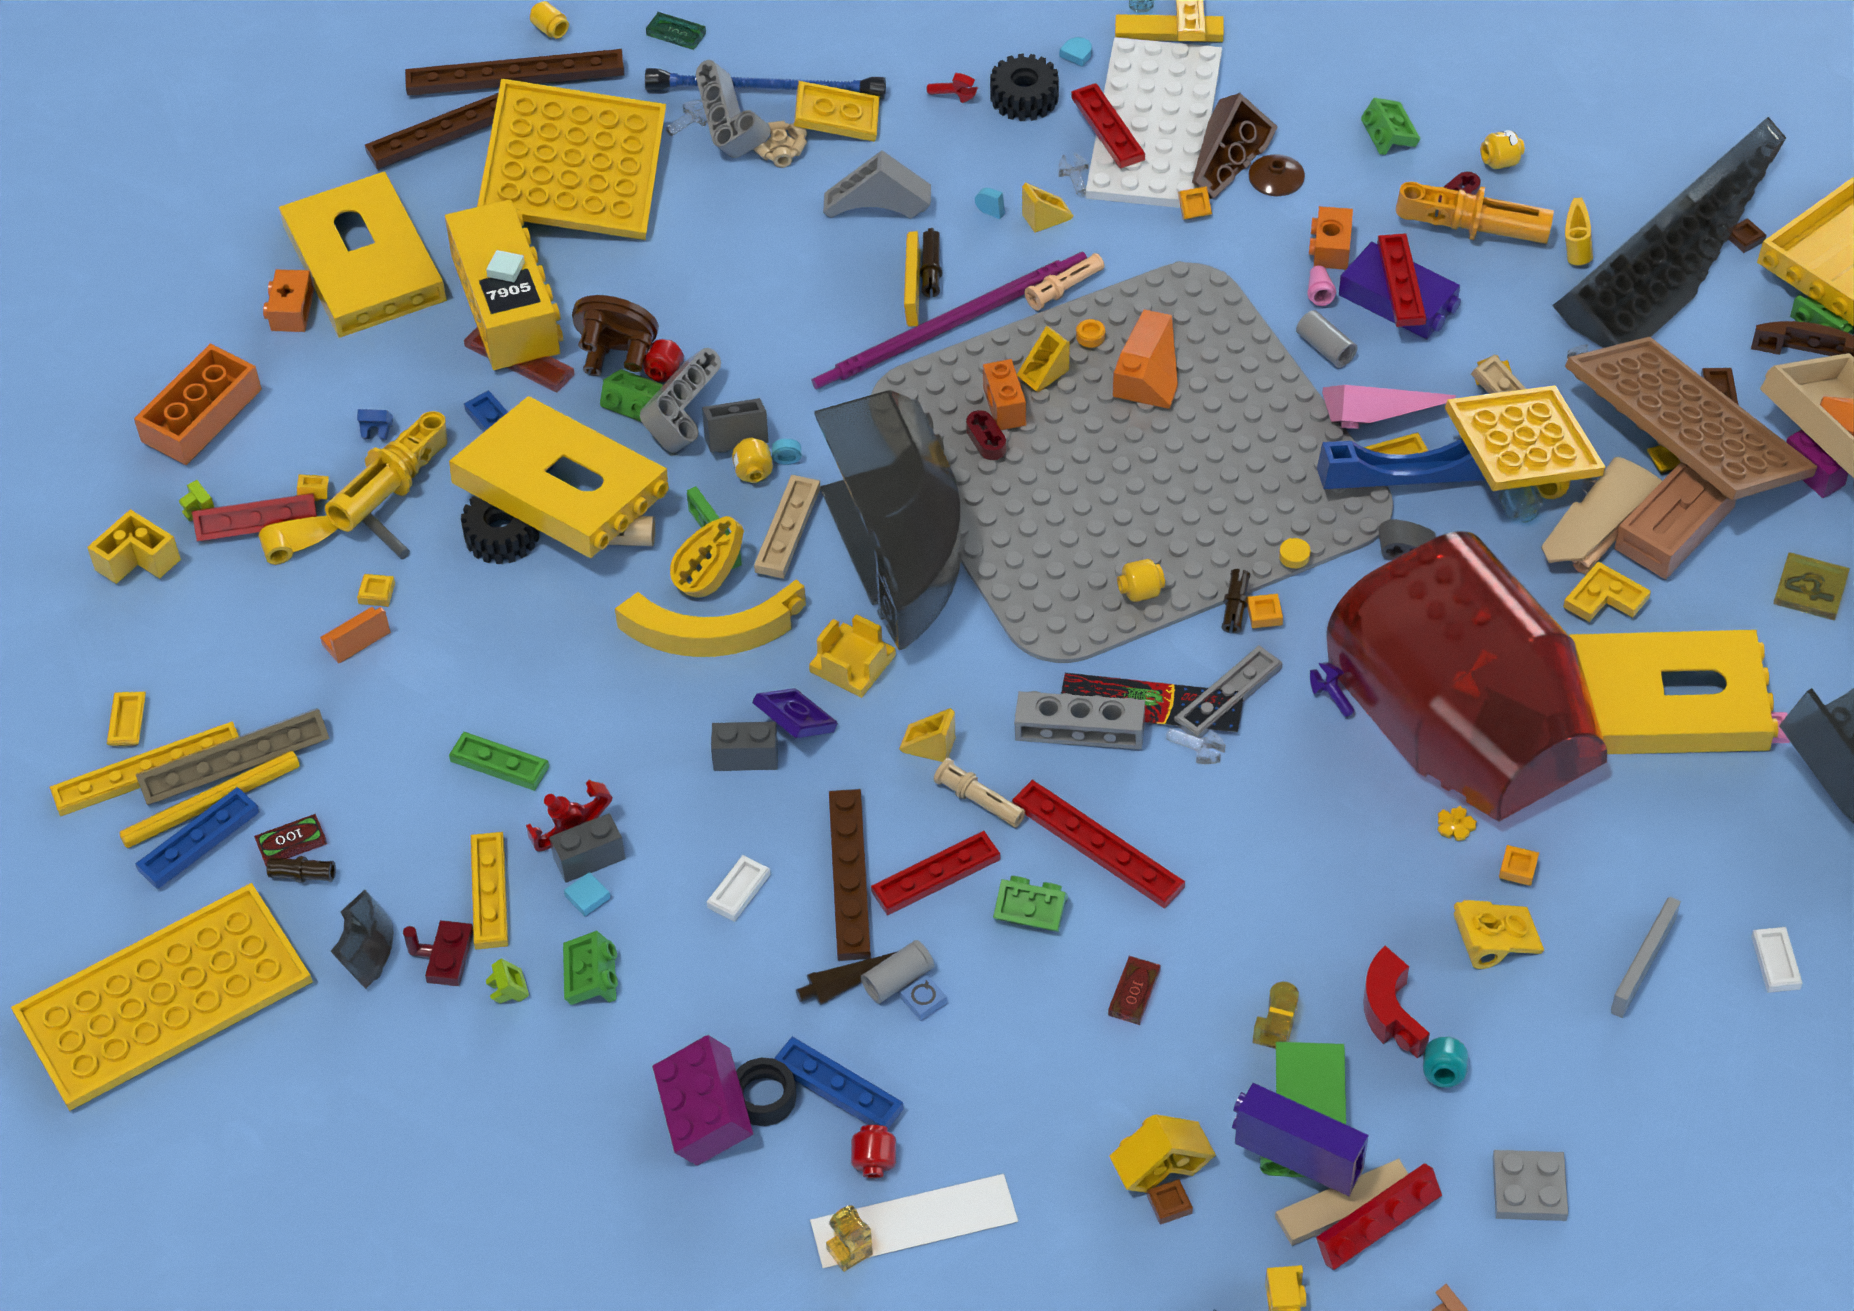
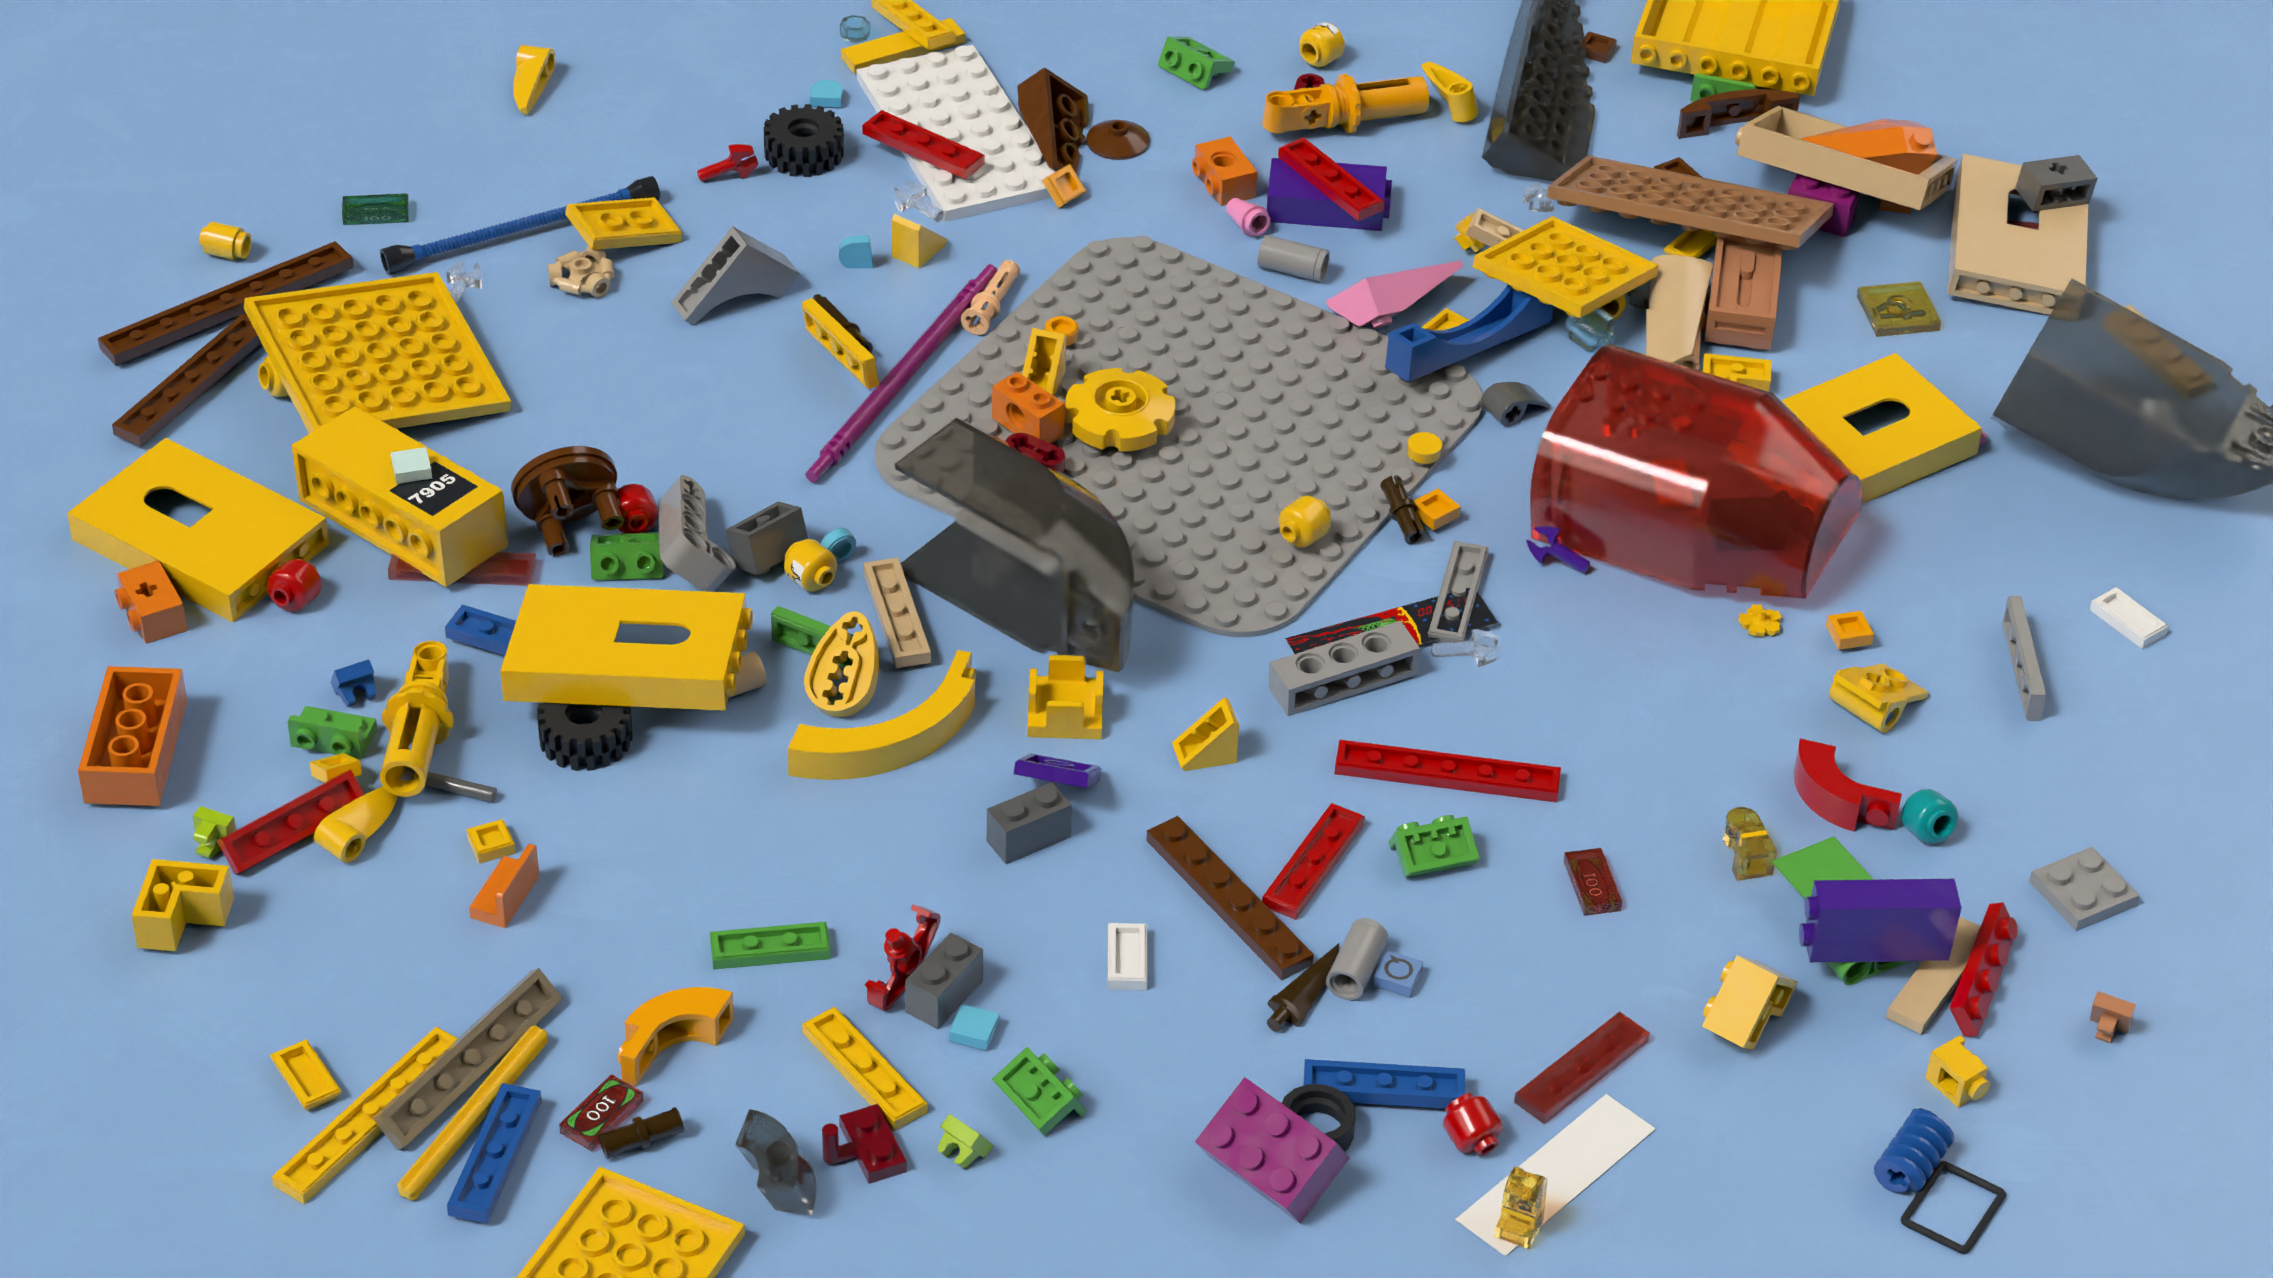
camera: 35 degrees left, 10 degrees down
(334, 455) = (331, 732): none -> bright green bracket
(378, 790) = (670, 1019): none -> light orange arch
(390, 326) = (294, 585): none -> red head
(729, 129) = (502, 256): light grey beam -> none
(967, 786) = (1281, 770): tan pin -> none
(1000, 1143) = (1581, 1067): none -> clear red tile
(1077, 422) = (1120, 409): none -> yellow piece
(1148, 362) = (1141, 336): orange wedge -> none
(1169, 1201) = (1782, 1046): dark orange tile -> none

